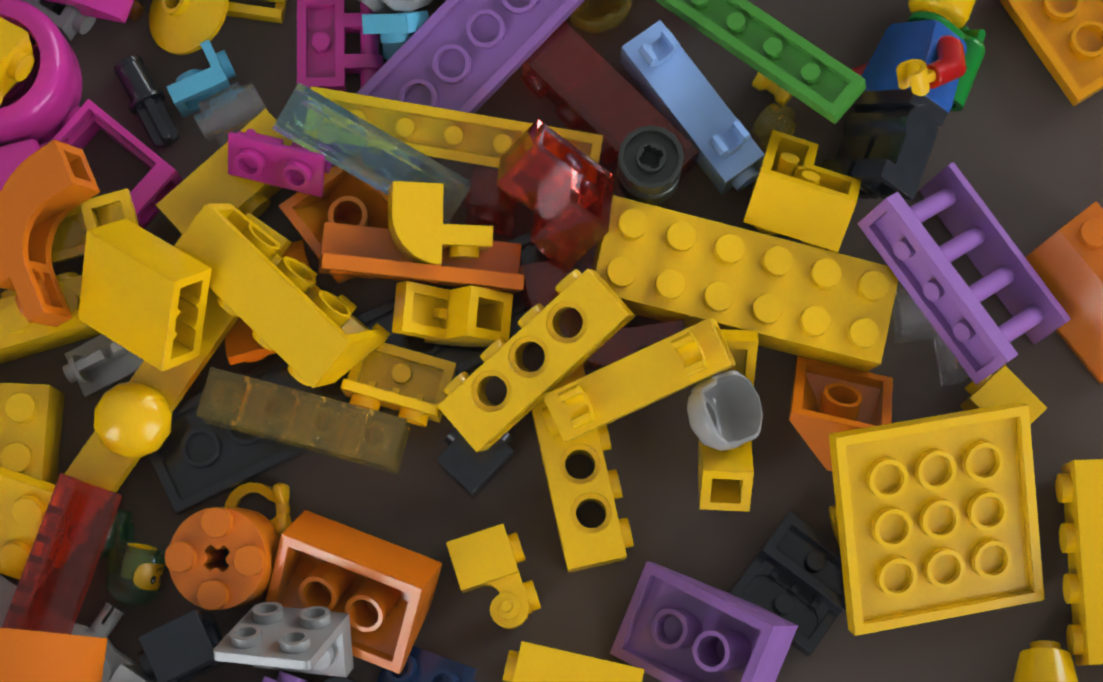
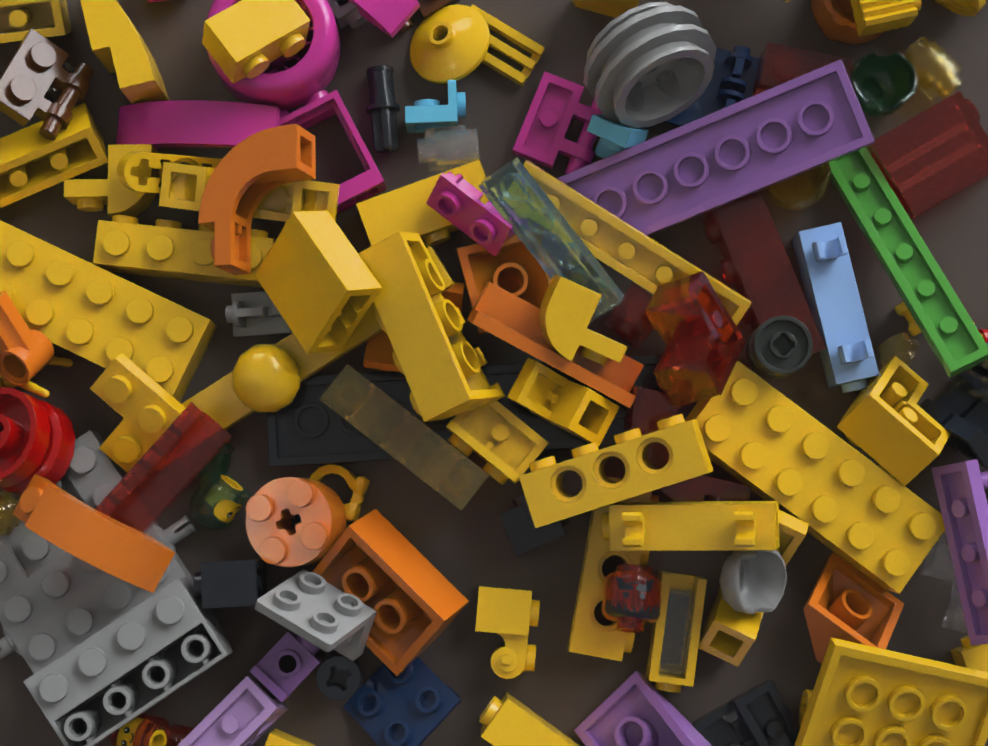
camera: 20 degrees right, 5 degrees up
(608, 483) = (632, 597): none -> clear red head
(670, 503) = (677, 632): none -> yellow window

